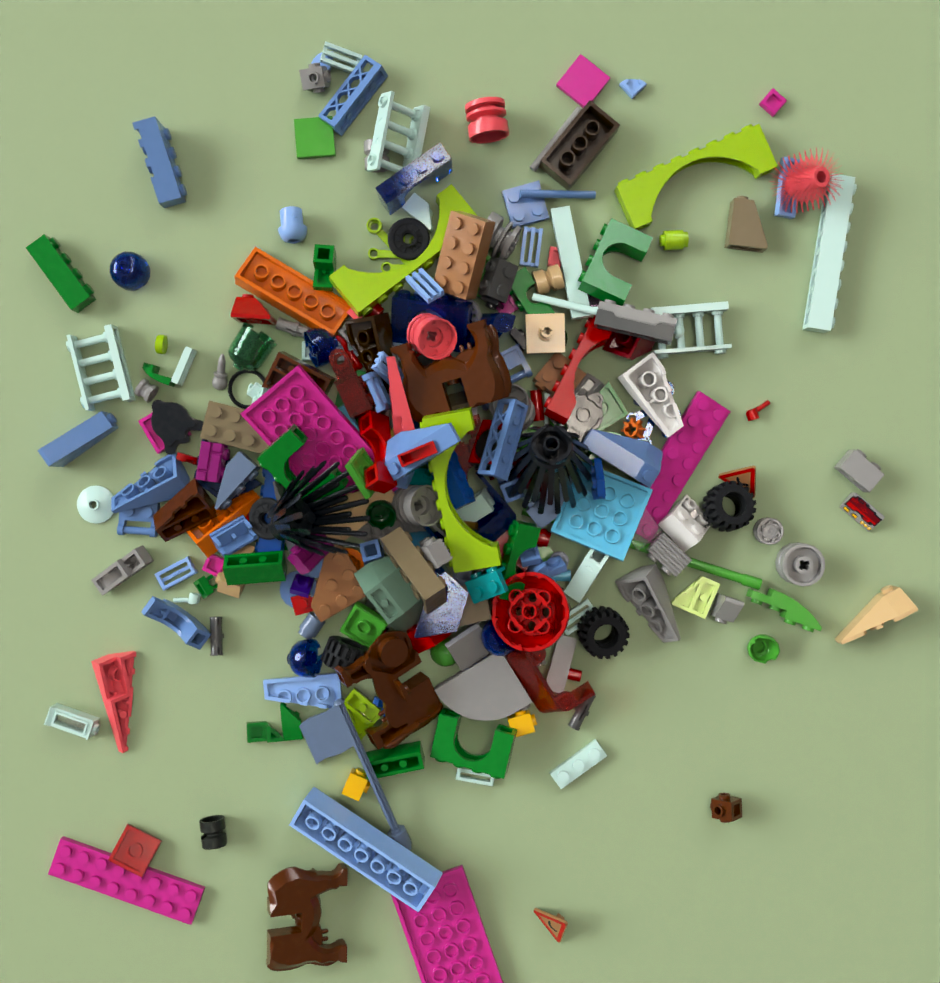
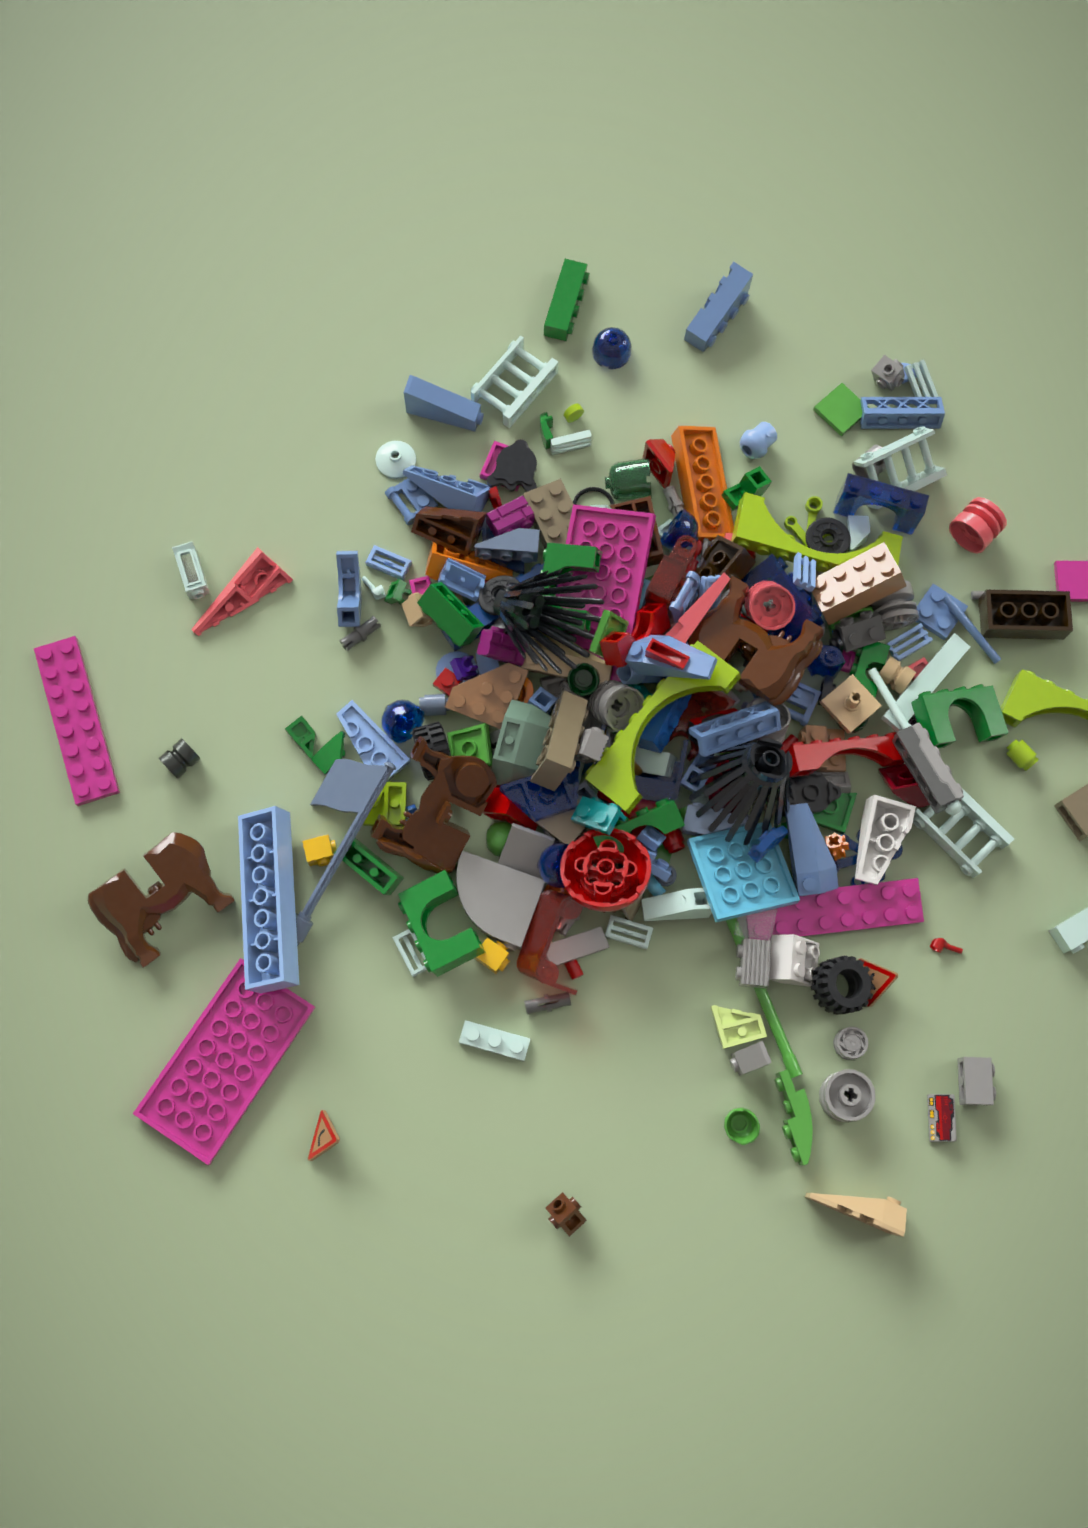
camera: 50 degrees right, 15 degrees down
(122, 570) = (357, 517): light grey slope -> none
(135, 850) = (111, 705): red tile -> none
(146, 390) = (525, 428): light grey wheel -> none
(219, 381) = (581, 480): light grey bar -> none
(612, 643) = (643, 980): black tyre -> none
(649, 594) = (701, 981): light grey wedge -> none

